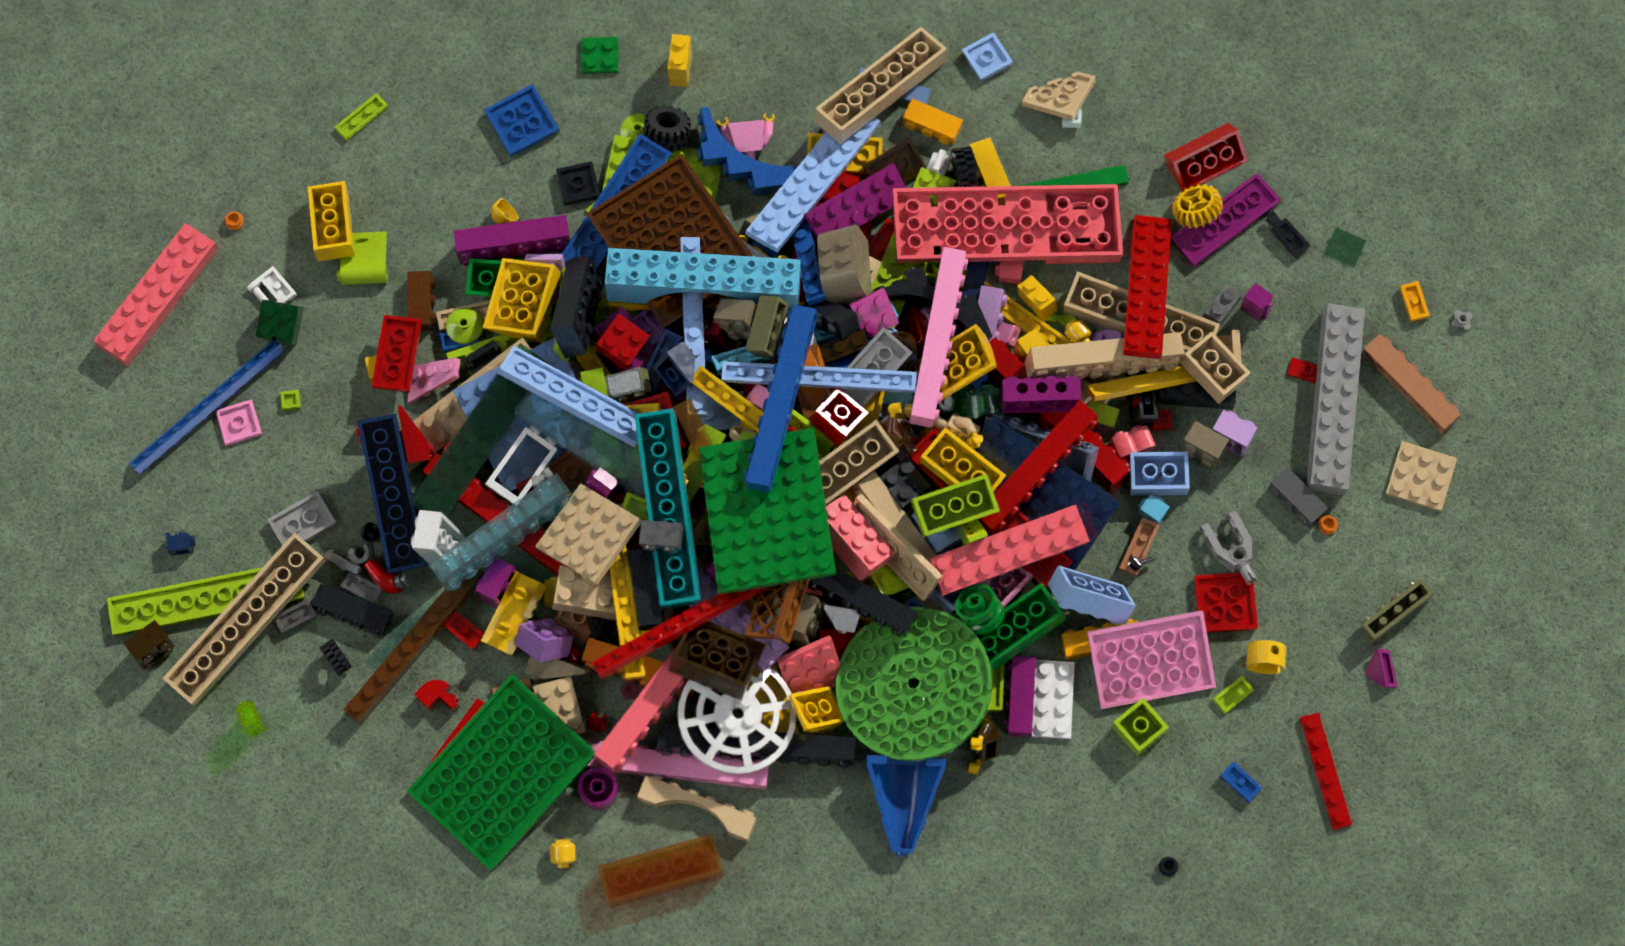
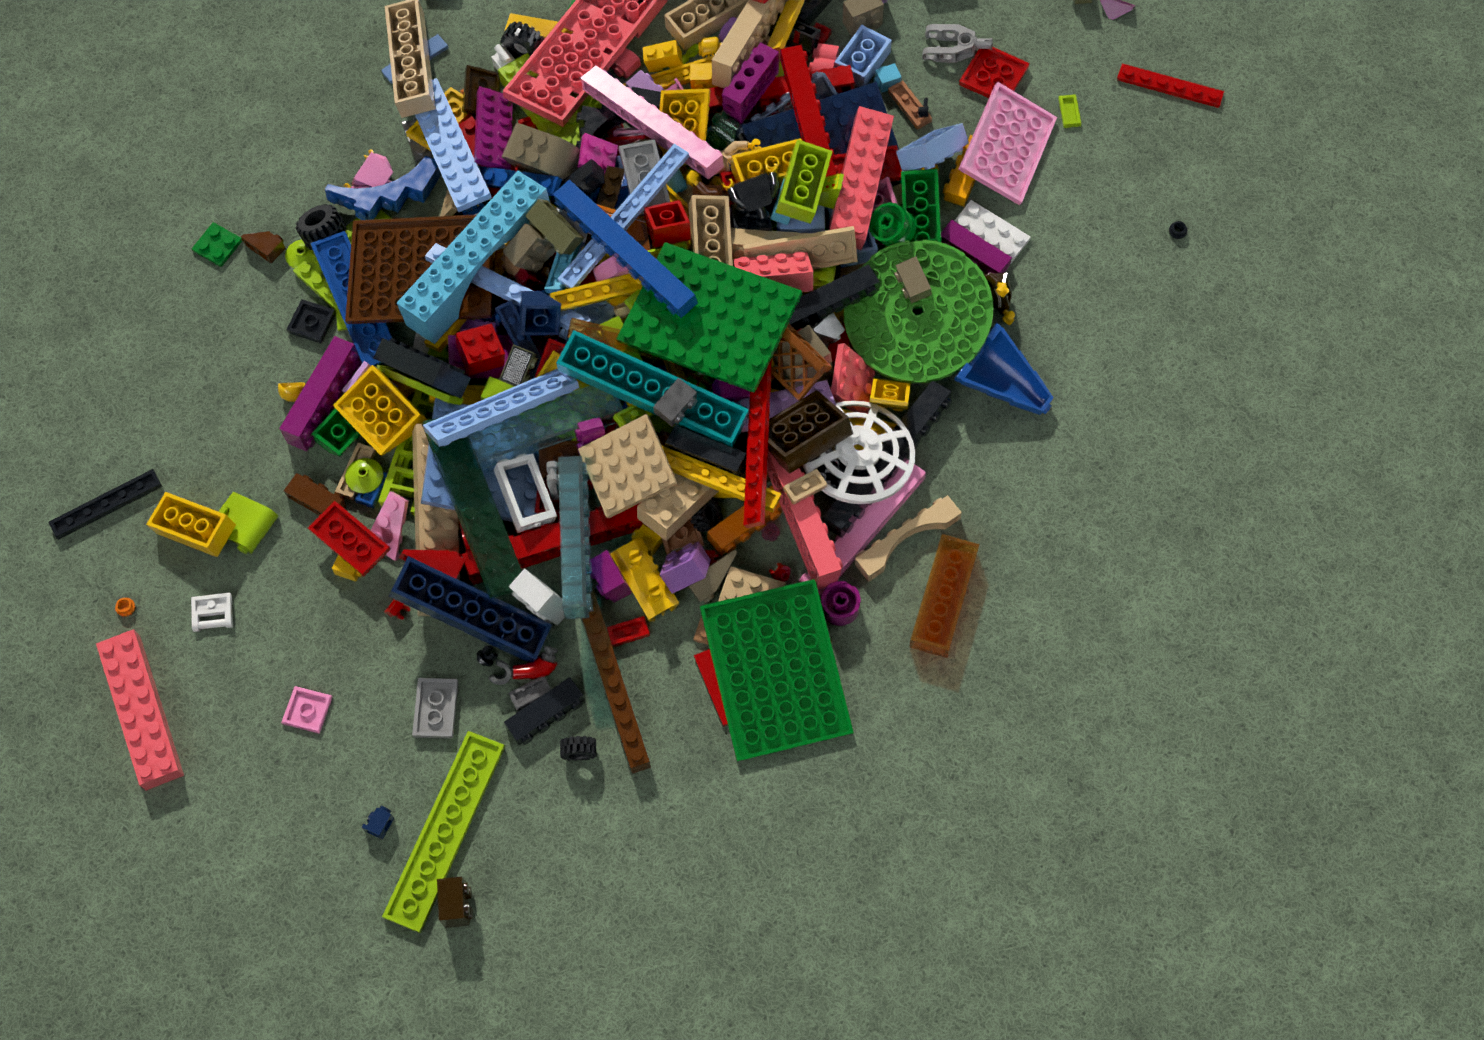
camera: 55 degrees left, 5 degrees down
(206, 406) = (272, 728): blue plate -> none
(244, 619) = (491, 805): tan brick -> none
(250, 718) = (582, 852): clear neon green brick -> none
(279, 322) = (245, 619): dark green piece -> none
(290, 400) = (320, 655): lime tile -> none
(295, 616) = (516, 763): flat silver plate -> none
(310, 140) = (105, 504): none -> black plate
(343, 561) = (496, 694): flat silver plate -> none
(361, 117) = (118, 452): lime tile -> none
(433, 692) = (665, 685): red brick -> none
(481, 356) = (403, 473): black hinge -> none
(521, 120) = (223, 332): blue plate -> none
(562, 853) = (876, 665): yellow head -> none
(623, 95) = (264, 244): none -> reddish brown slope
(665, 691) = (805, 486): none -> tan plate
(680, 60) = (272, 184): yellow brick -> none
(920, 471) = (755, 192): none -> black torso
(932, 122) = (465, 46): light orange brick -> none
(933, 660) = (913, 280): none -> dark tan brick
(1140, 727) = (1056, 182): lime brick -> none
(1241, 782) = (1143, 143): blue plate -> none
(1266, 657) = (1055, 68): yellow piece -> none

